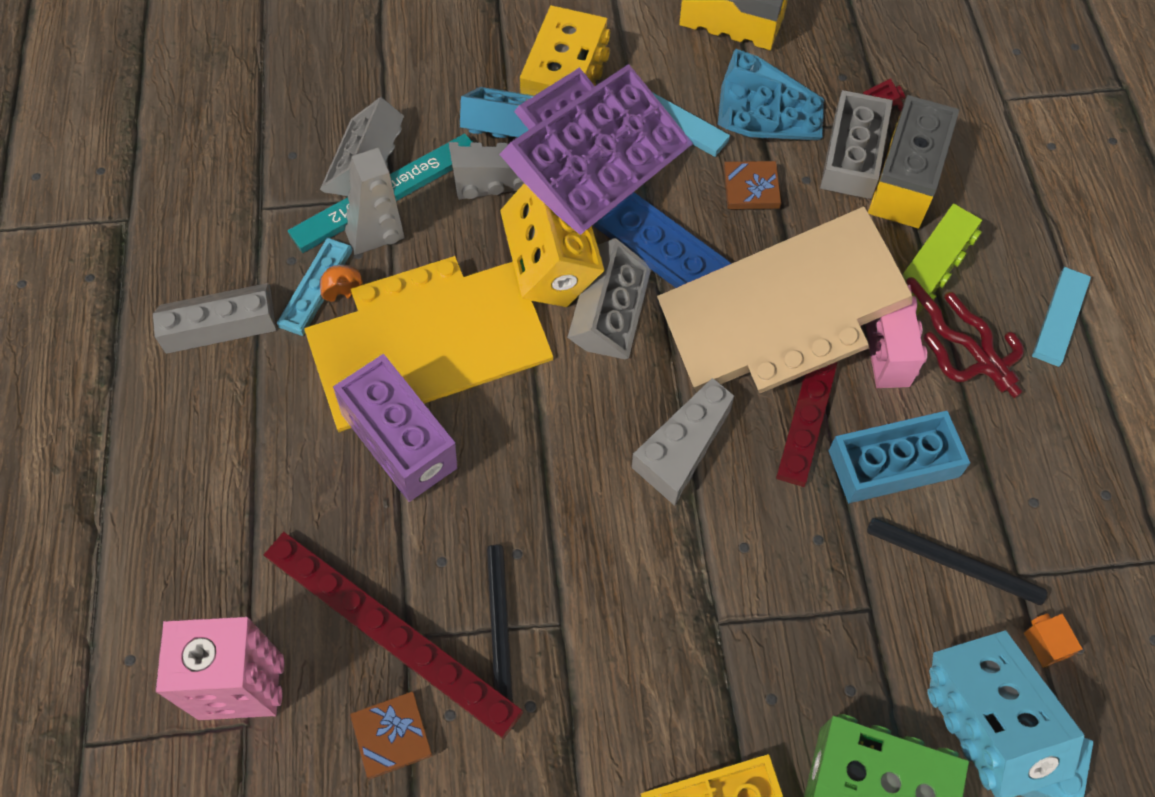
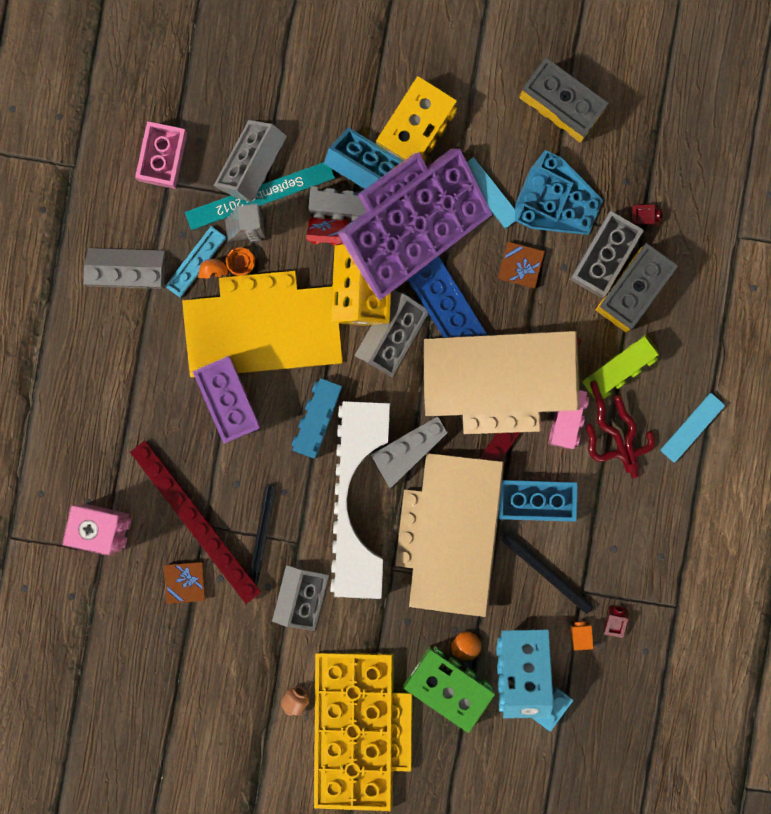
camera: 15 degrees right, 25 degrees up
(242, 171) = (161, 155): none -> bright pink brick
(376, 264) = (240, 261): none -> orange hair
(474, 203) = (325, 231): none -> red tile
(537, 434) = (317, 418): none -> dark azure wedge
(588, 706) = (300, 598): none -> light grey slope
(663, 620) = (356, 566): none -> white arch
(794, 541) = (451, 534): none -> tan slope
(881, 707) = (466, 646): none -> orange hair
(1093, 603) = (616, 621): none -> dark red bracket

